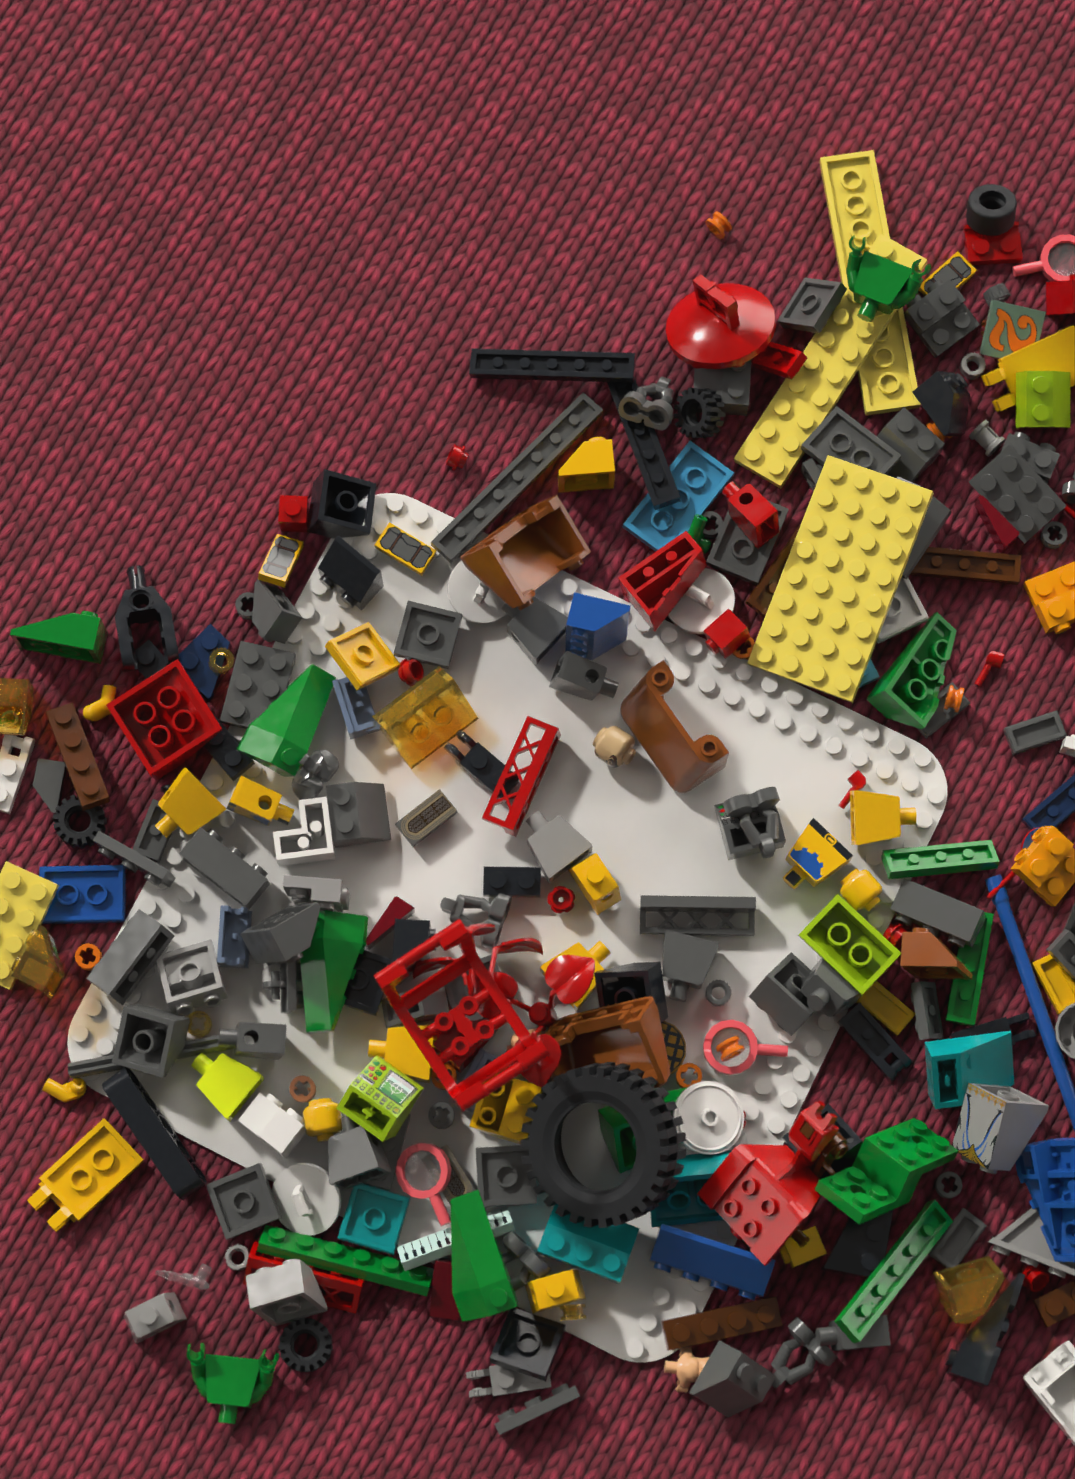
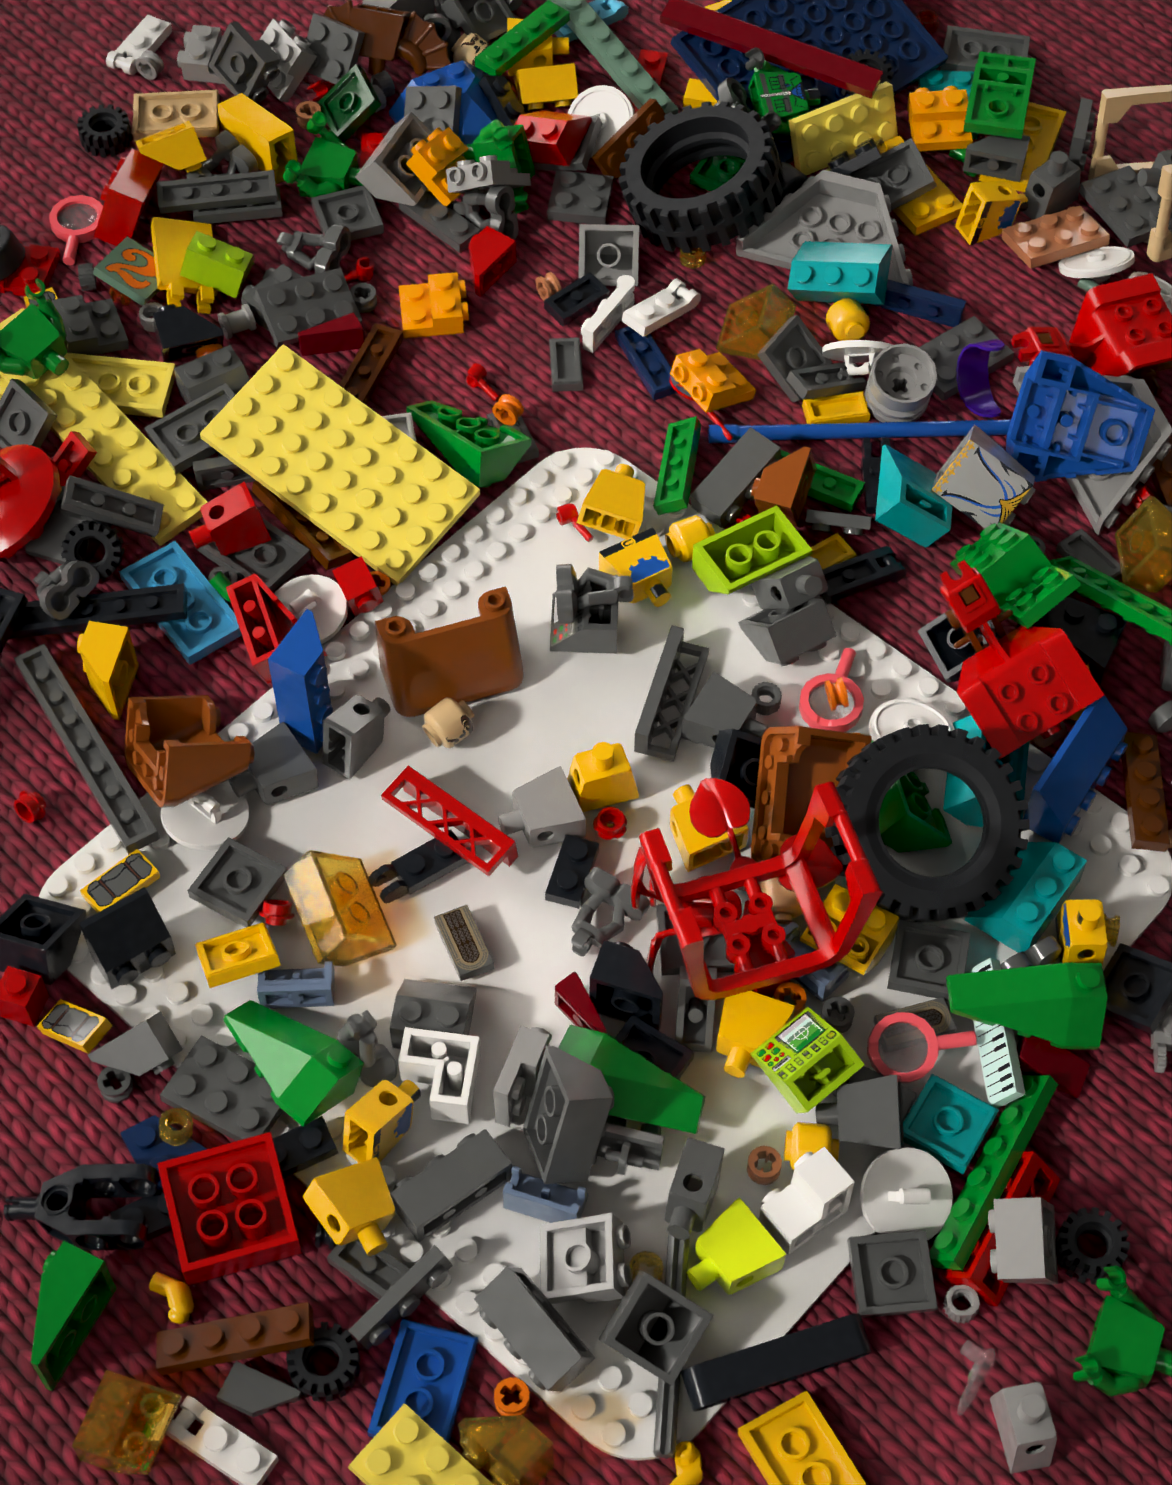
camera: 75 degrees left, 20 degrees down
(737, 413) = (112, 506): none -> dark grey plate

